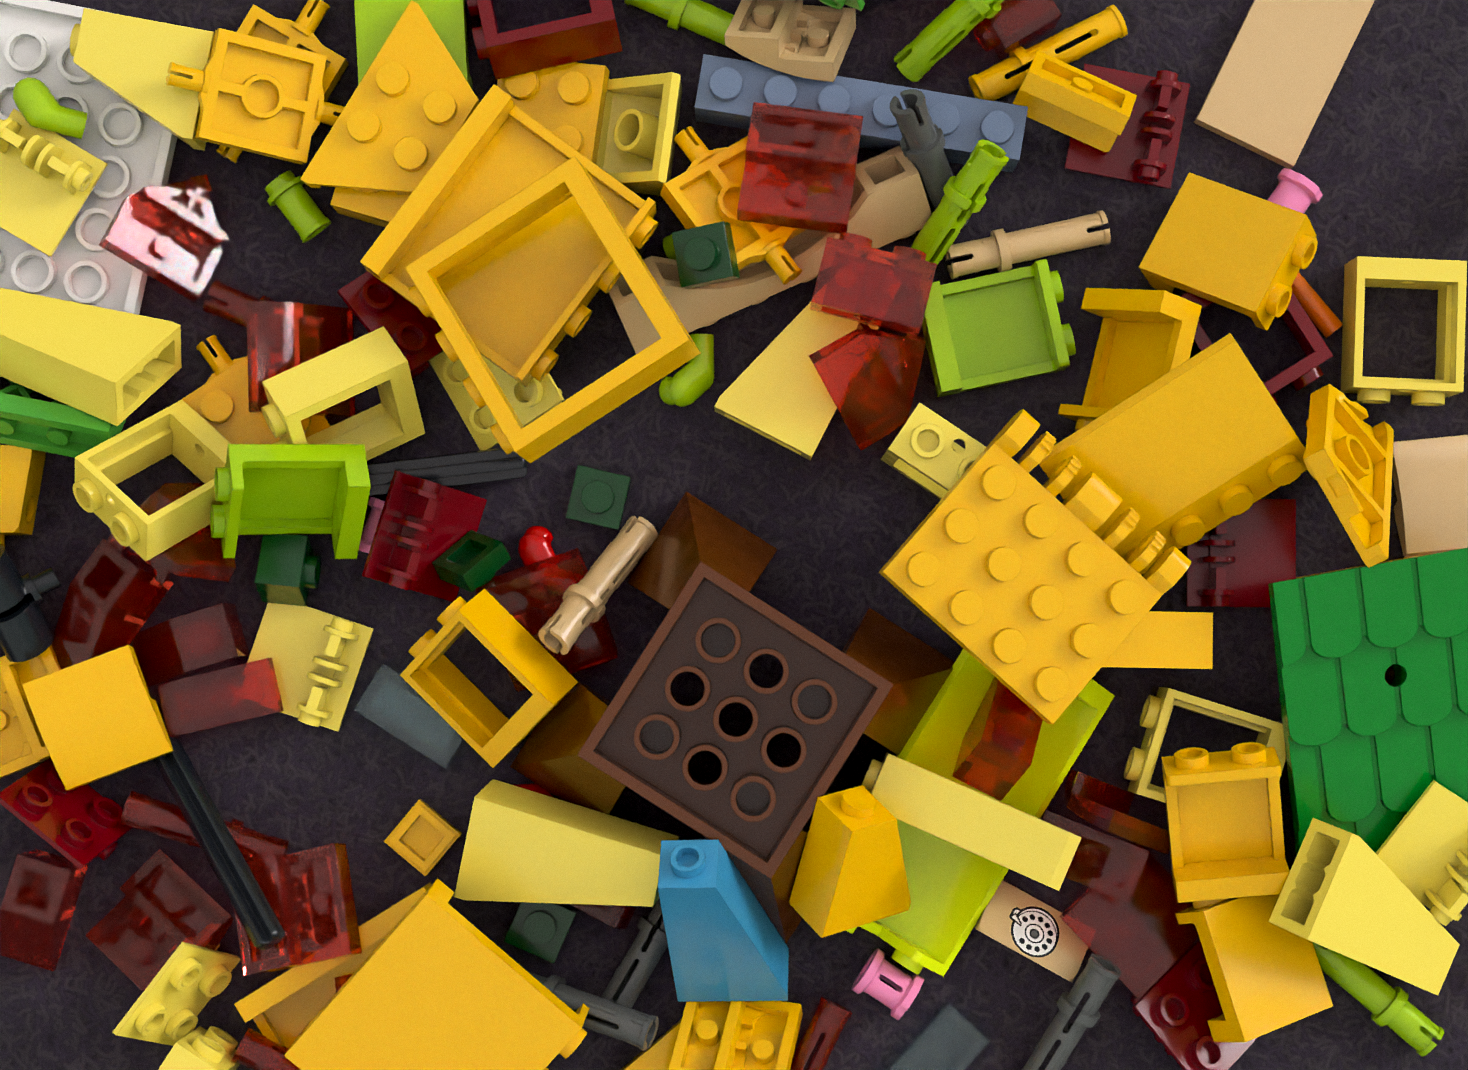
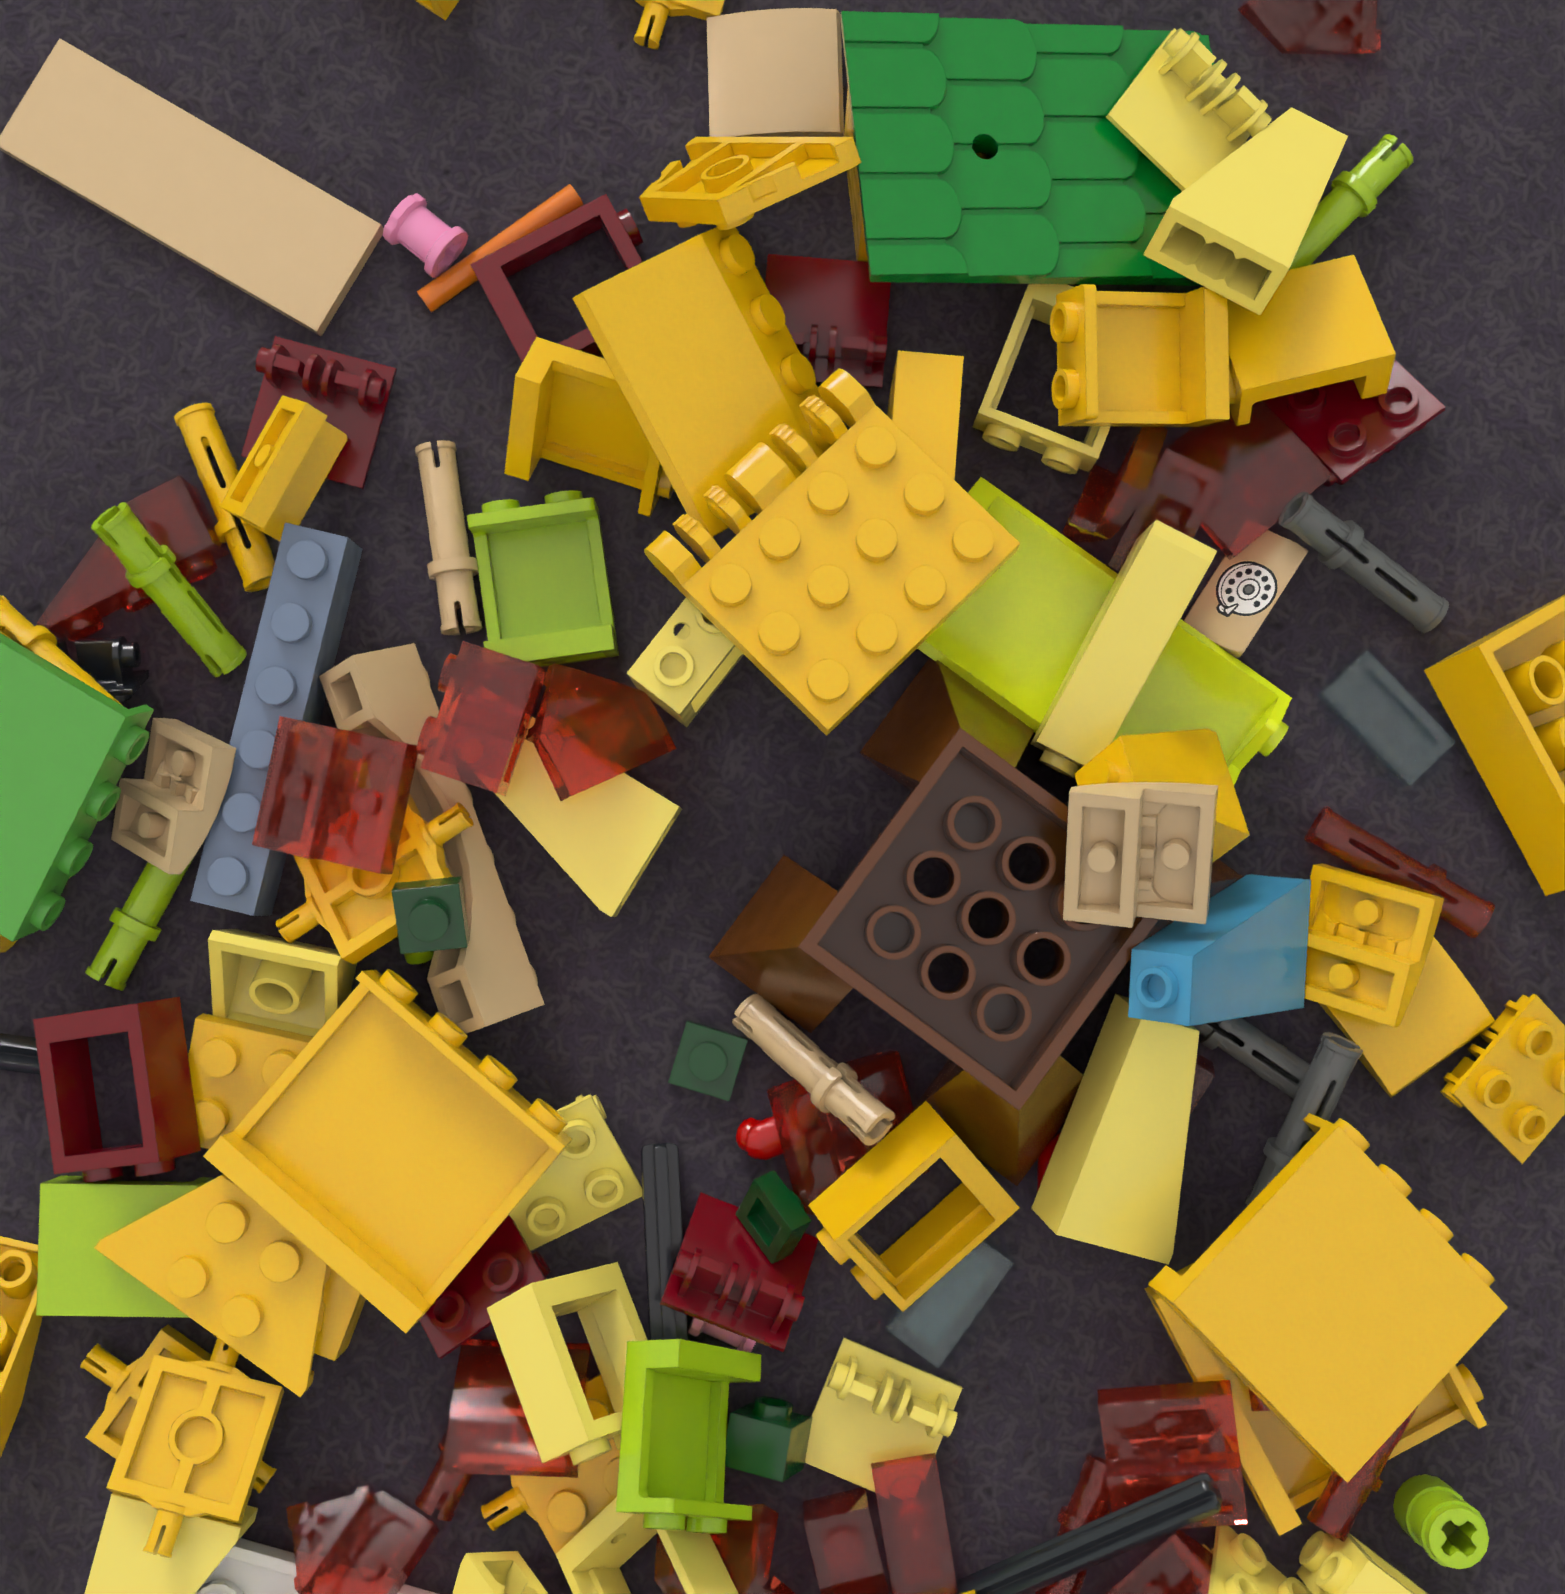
camera: 90 degrees left, 0 degrees up
(296, 205) = (333, 1398): lime pin -> none
(422, 837) = (1092, 1294): yellow tile -> none
(541, 928) = (1210, 1163): dark green plate -> none
(605, 393) = (592, 1054): yellow window -> none
(693, 378) = (574, 937): lime arm -> none
(799, 839) = (1139, 852): none -> tan slope
(905, 985) = (1316, 752): bright pink bush -> none
(922, 143) = (323, 646): dark grey pin -> none
(961, 198) = (387, 607): lime pin -> none
(998, 742) = (1029, 614): clear red slope -> none
(1230, 249) = (472, 300): yellow panel -> none
(1442, 275) = (584, 60): light yellow window -> none

